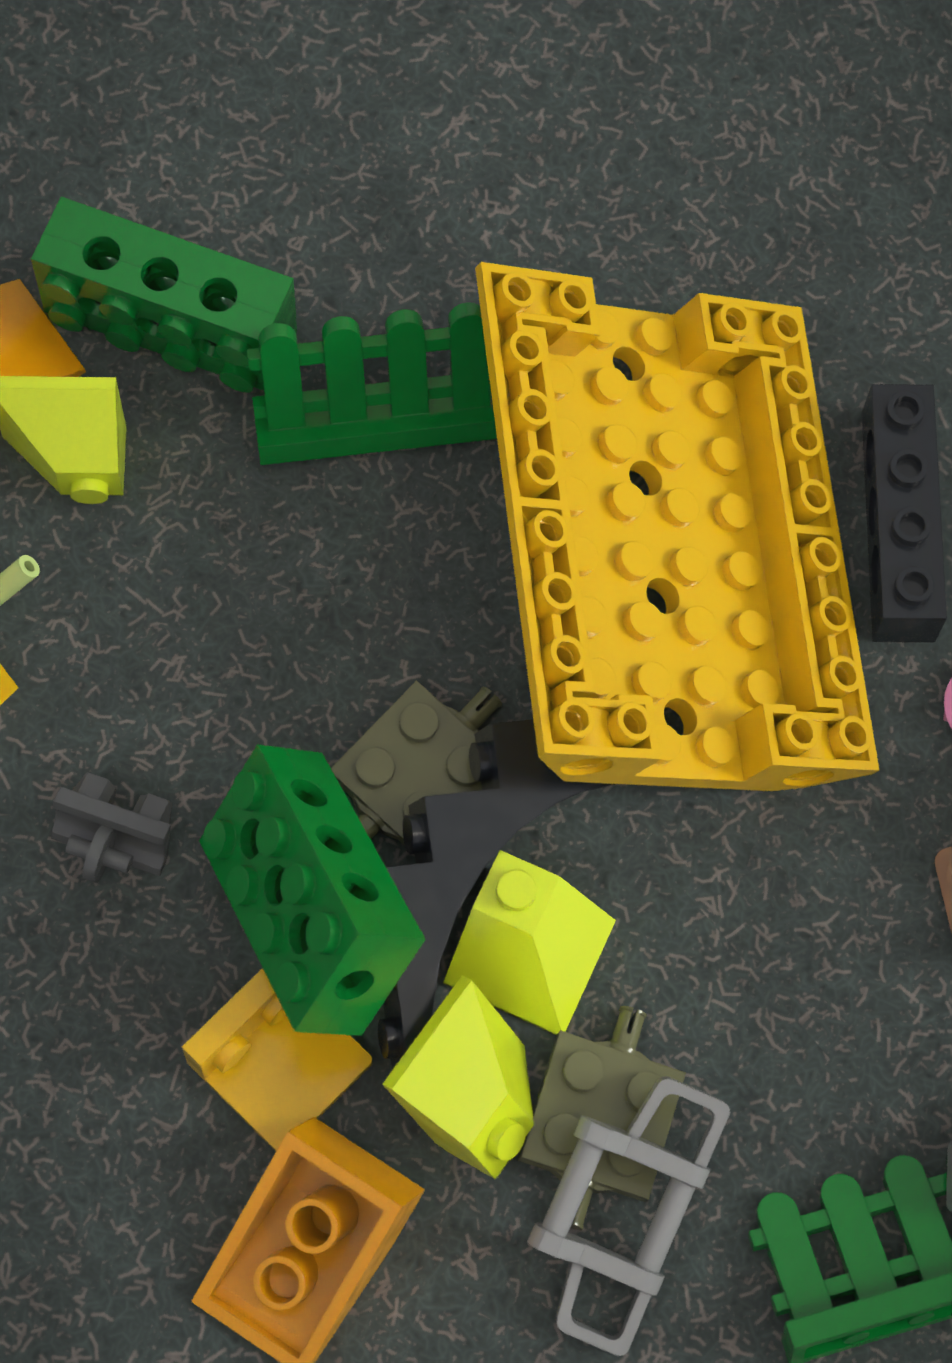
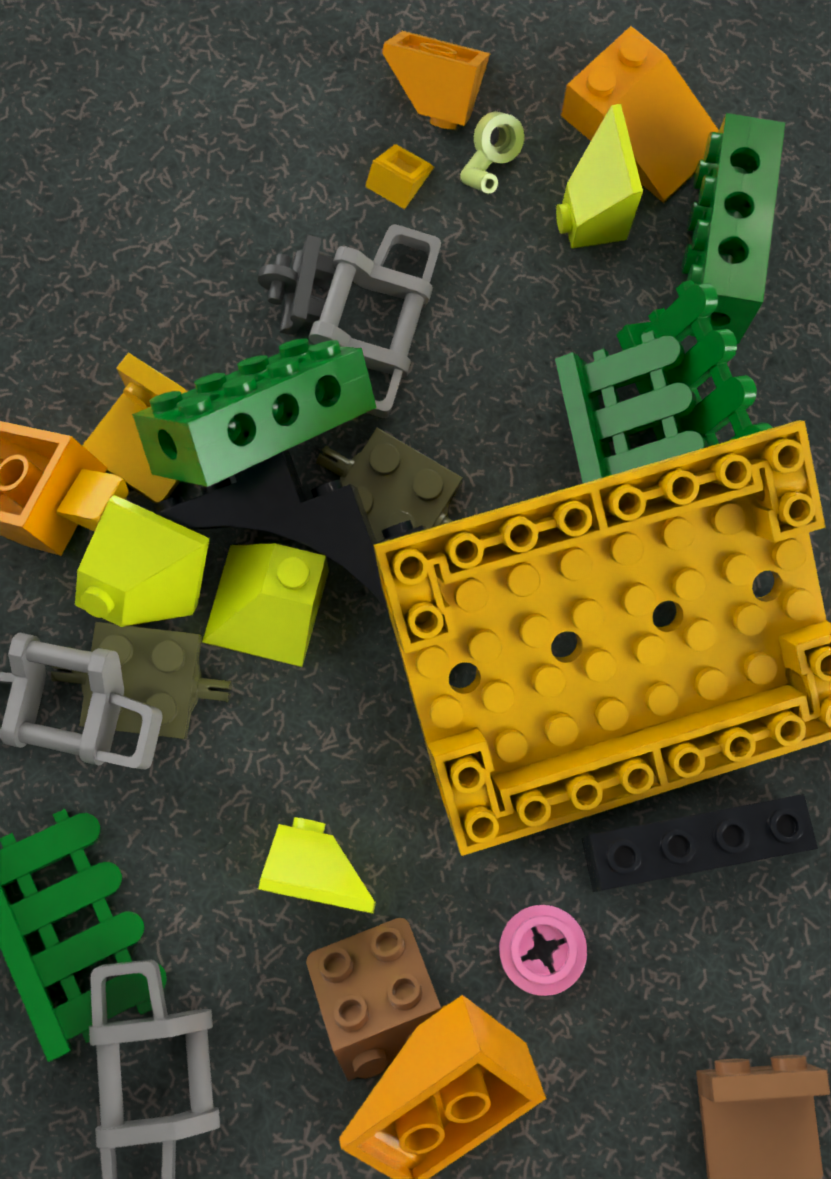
camera: 80 degrees right, 5 degrees up
(110, 742) = (356, 267): none -> light grey bar
(371, 1122) = (89, 497): none -> yellow slope
(385, 480) = (596, 427): none -> green fence
(874, 933) = (313, 868): none -> neon yellow slope

